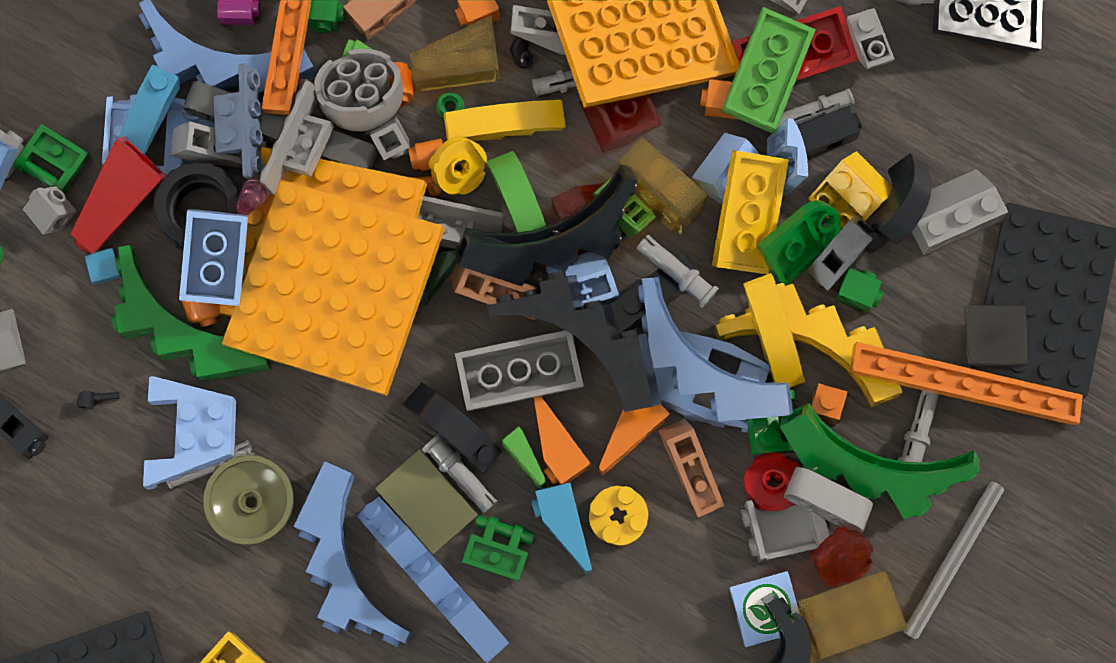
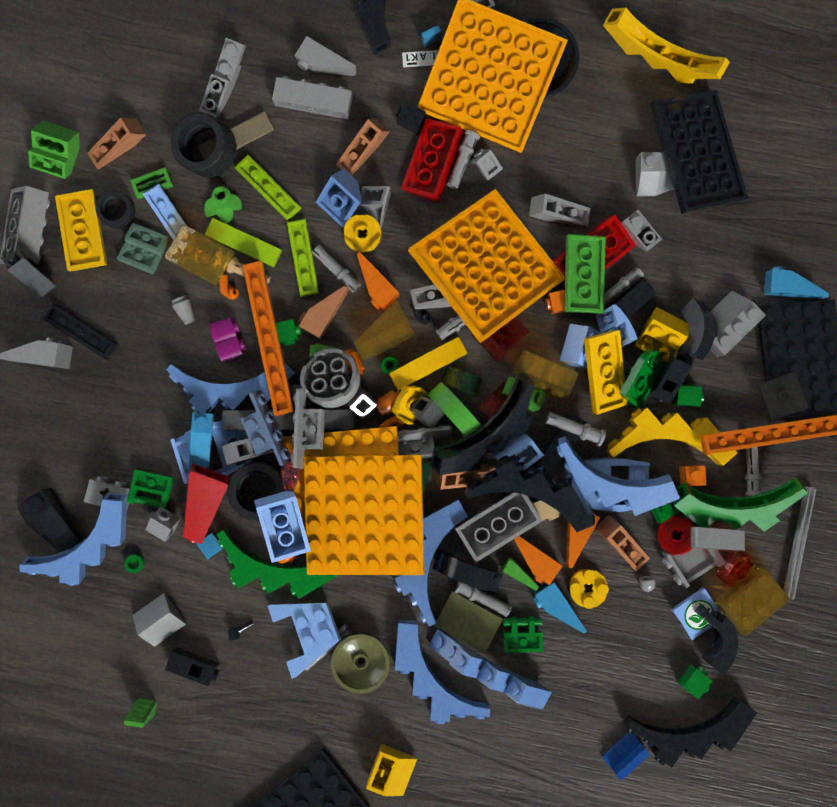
camera: 25 degrees left, 10 degrees up
(372, 412) = (435, 528): none -> medium blue arch
(476, 182) = (426, 411): none -> dark grey brick
(544, 162) = (461, 381): none -> clear green slope
(597, 379) = (544, 510): none -> tan brick
(707, 539) = (647, 583): none -> light grey hinge
(773, 330) = (648, 444): yellow slope -> none
(1062, 187) = (790, 284): none -> dark azure slope

